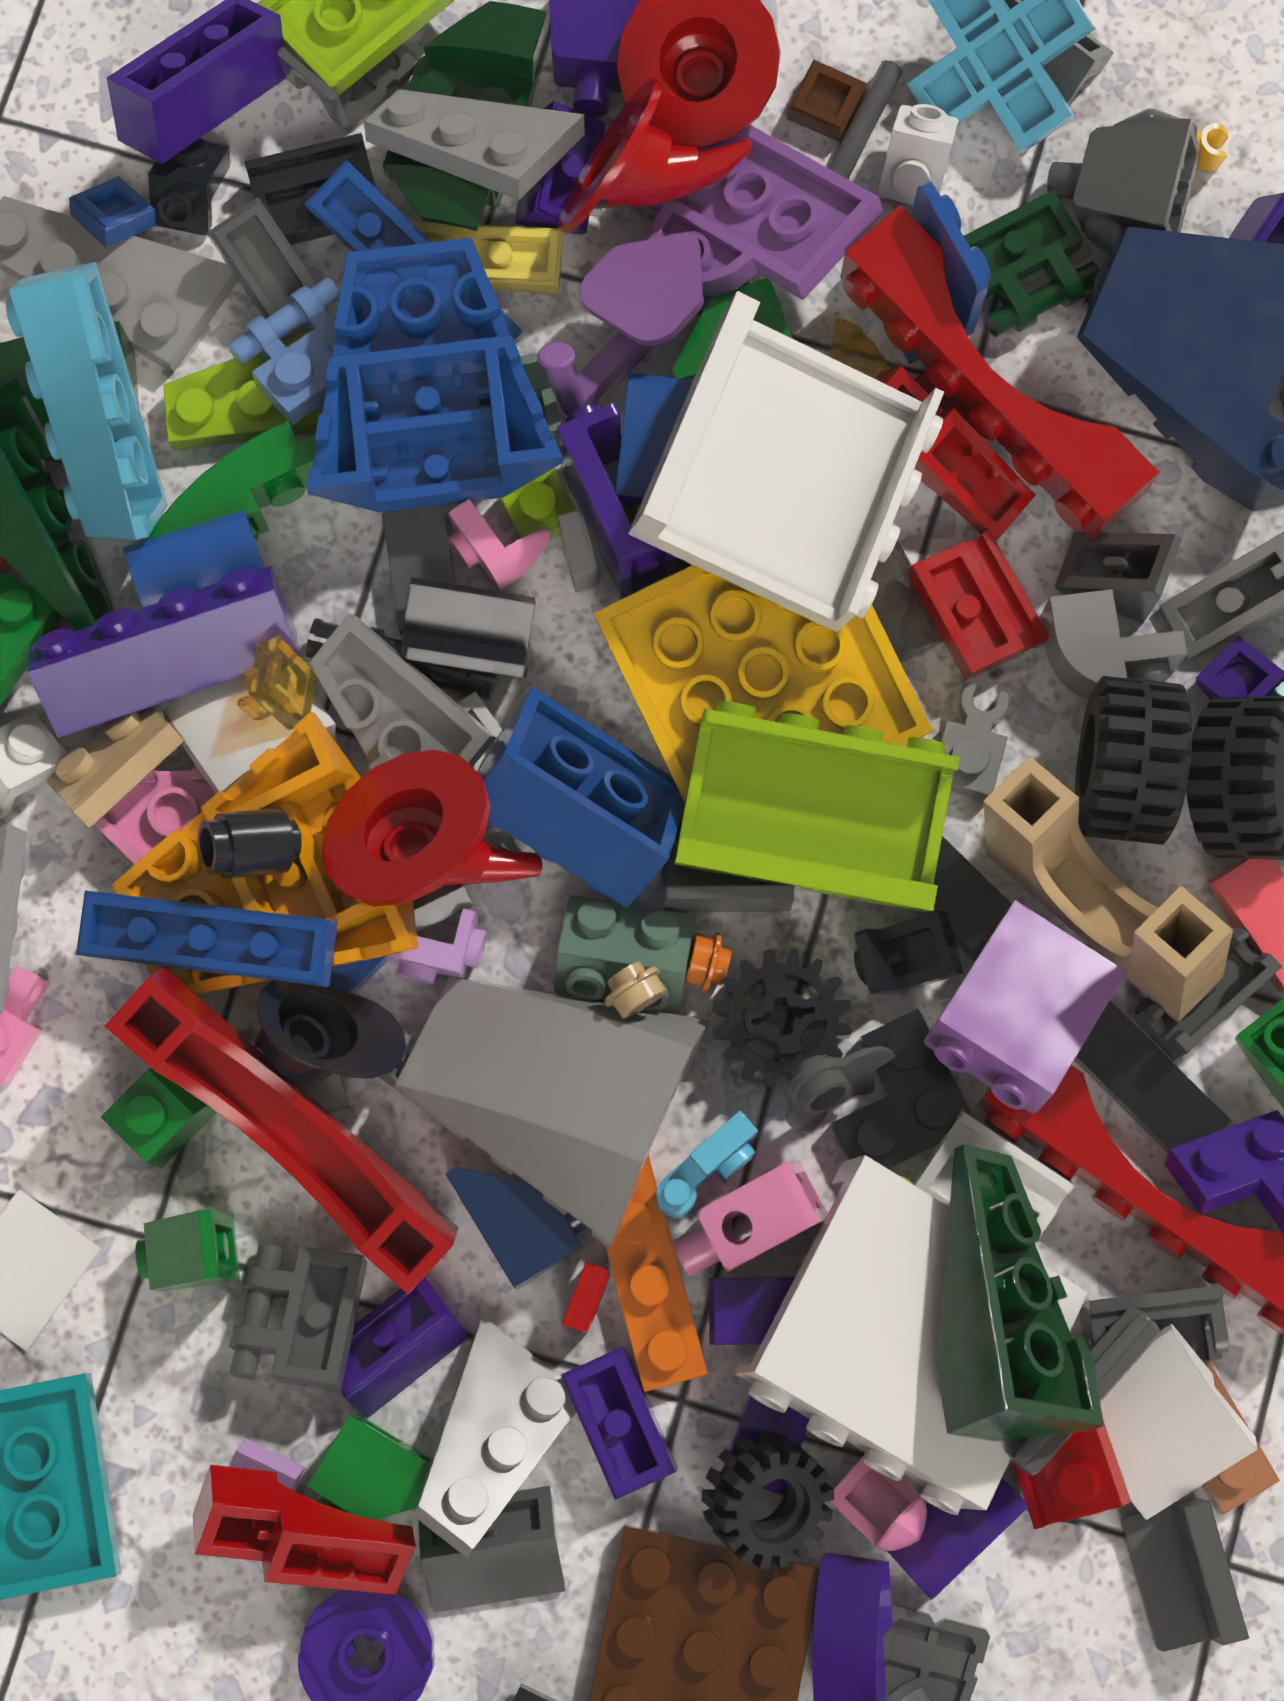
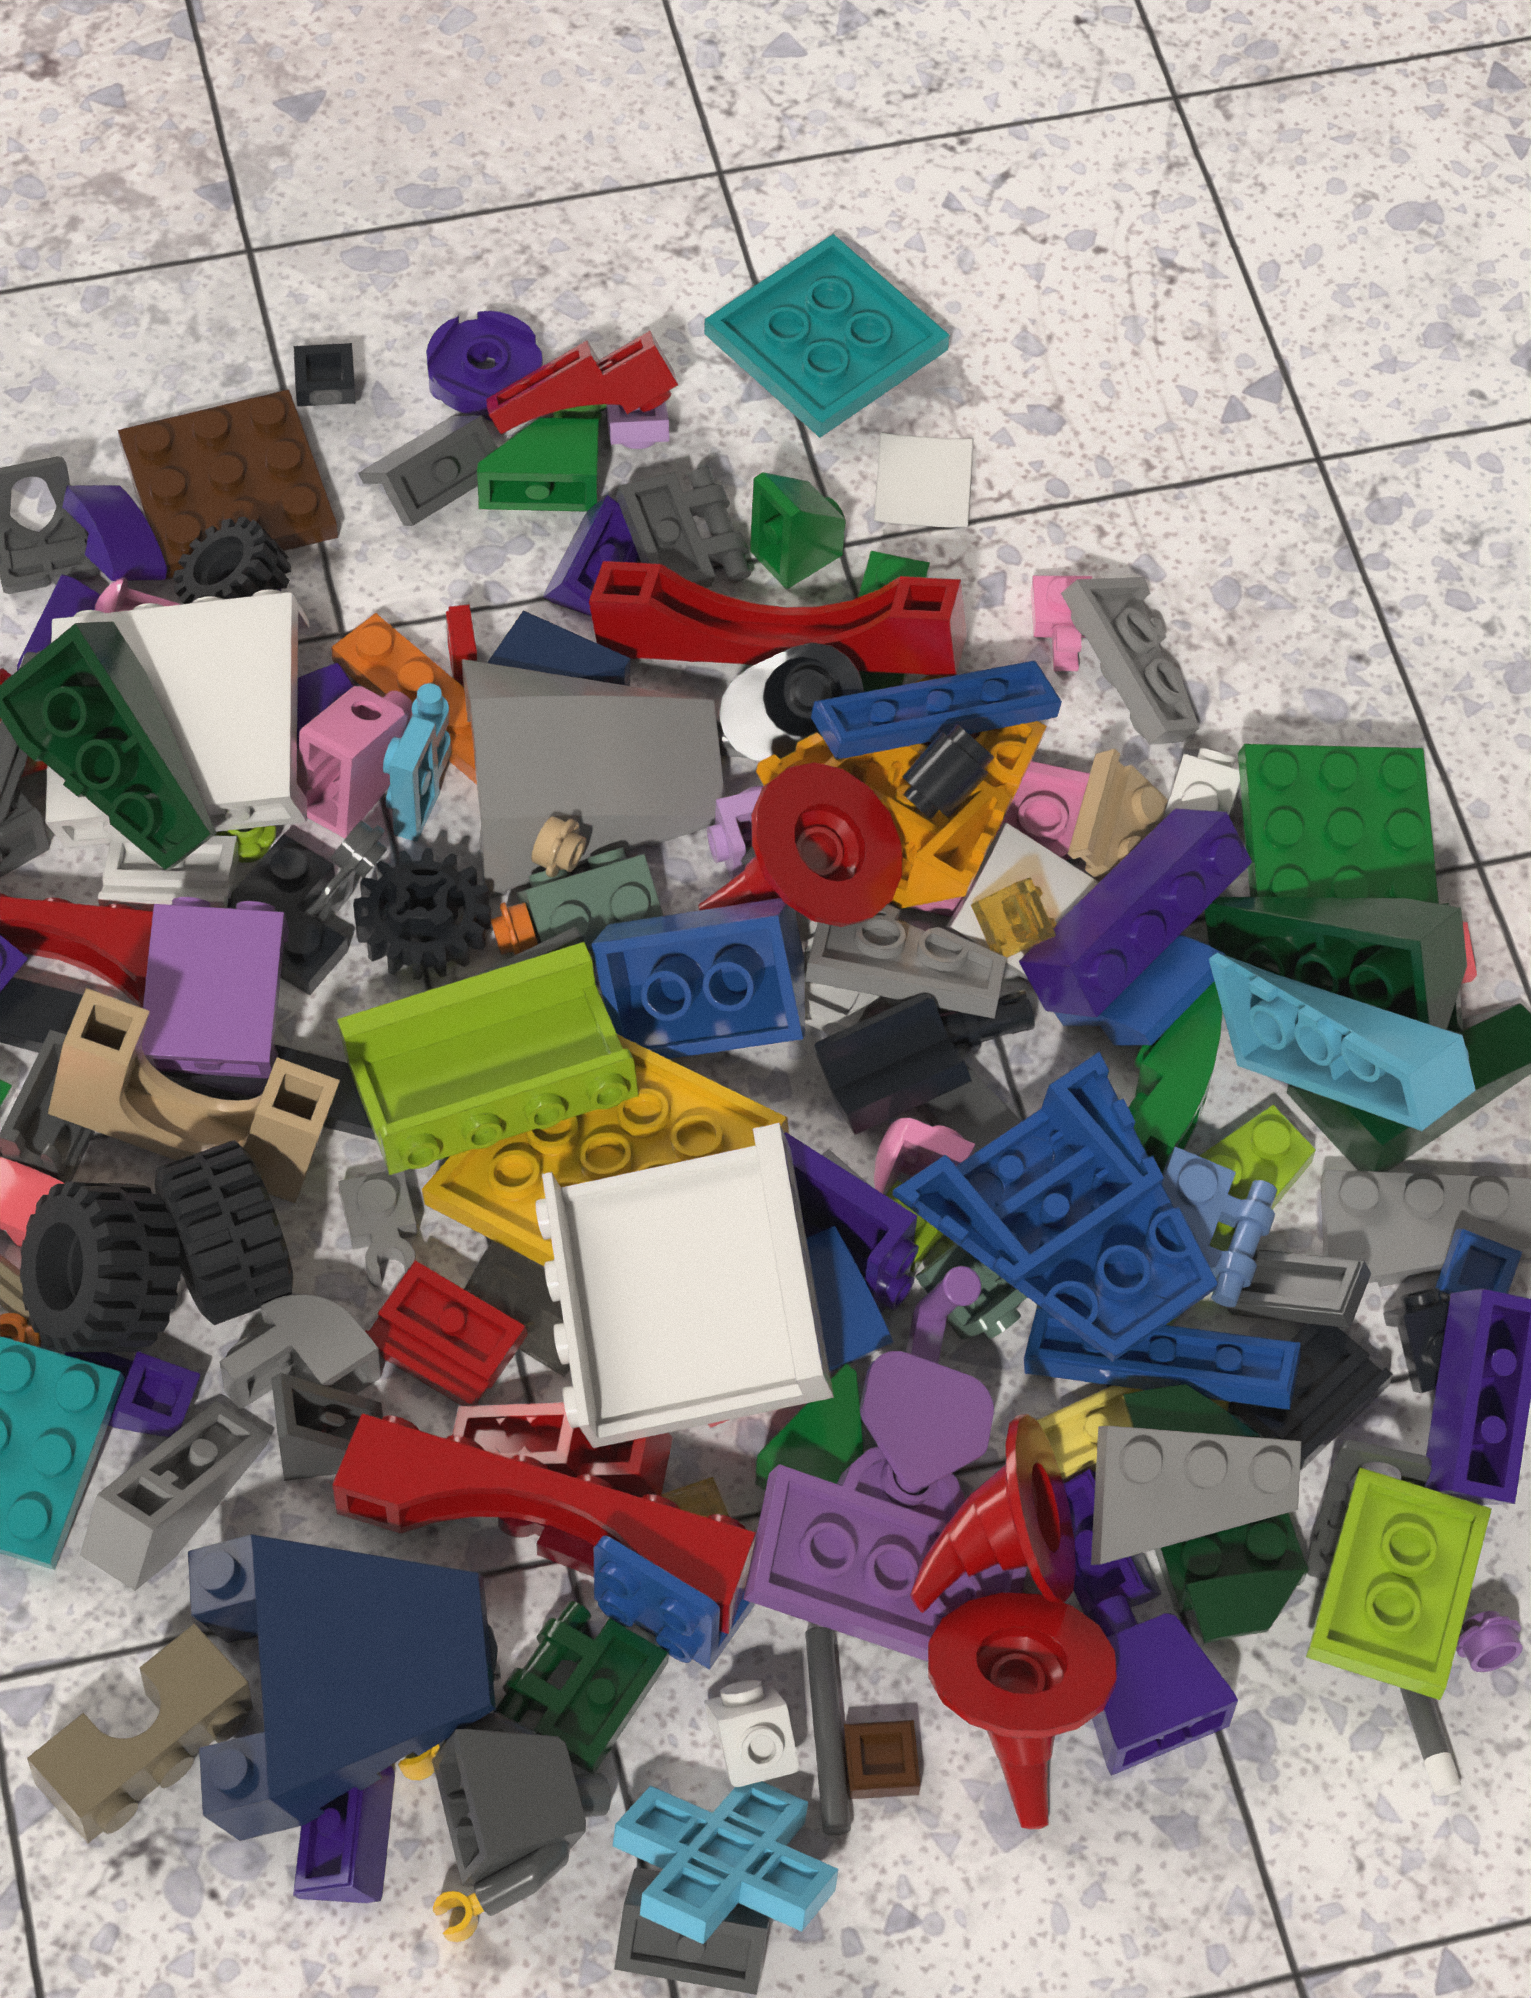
camera: 145 degrees right, 20 degrees down
(494, 1436) = (475, 519): wing -> none
(619, 1422) = (378, 580): dark purple slope -> none
(907, 954) = (316, 1014): black bracket -> none

